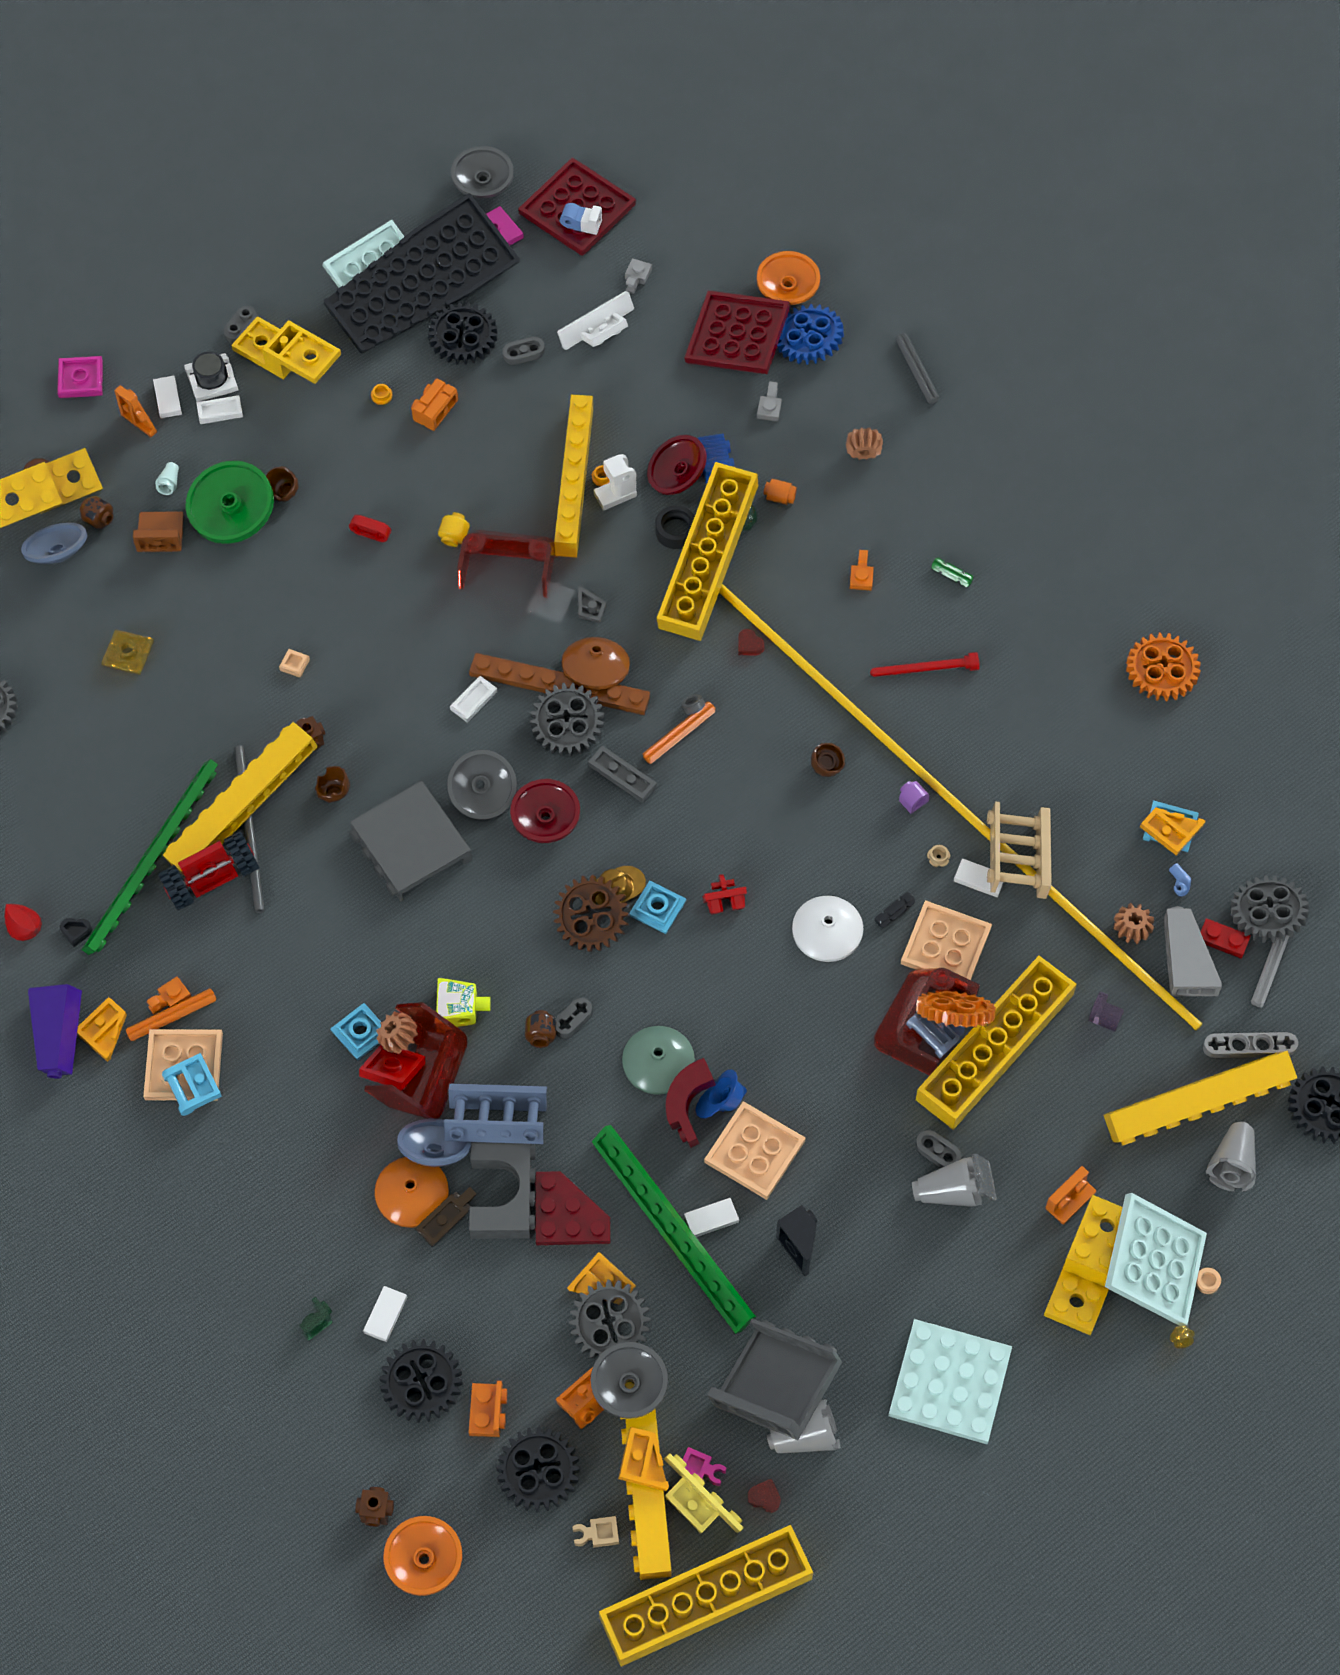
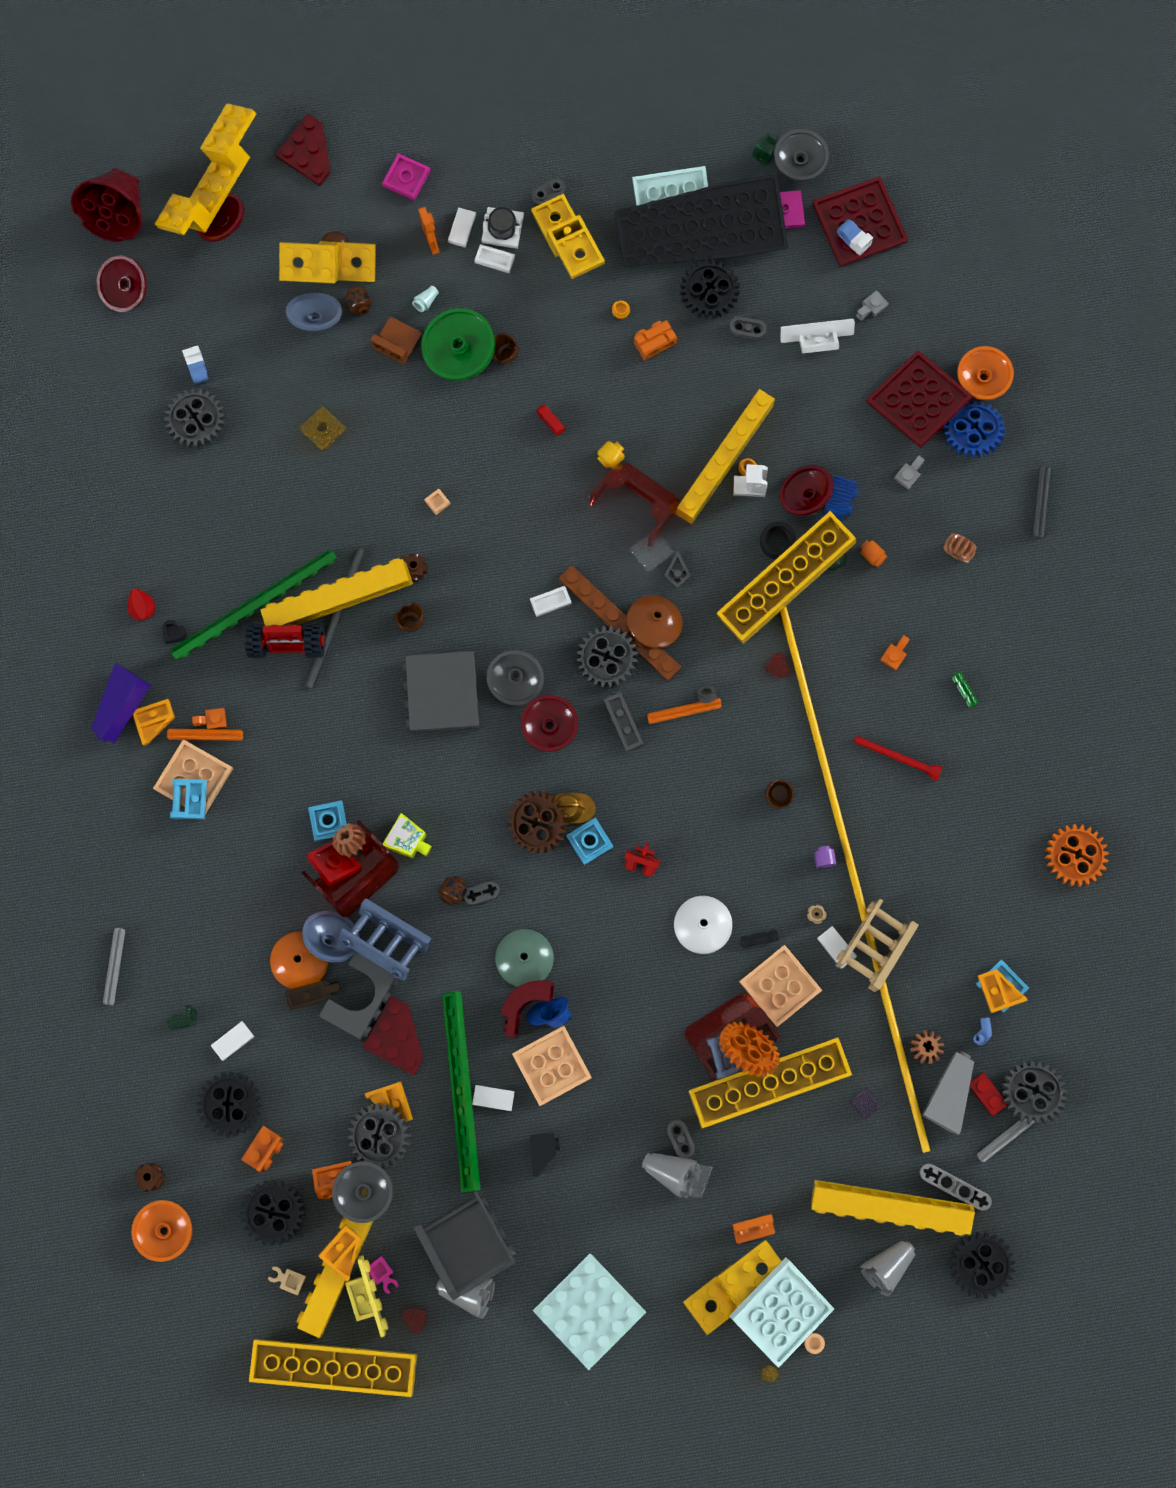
camera: 30 degrees right, 15 degrees up
(203, 1307) = (114, 966): none -> light grey axle
(441, 186) = (765, 149): none -> clear green bracket

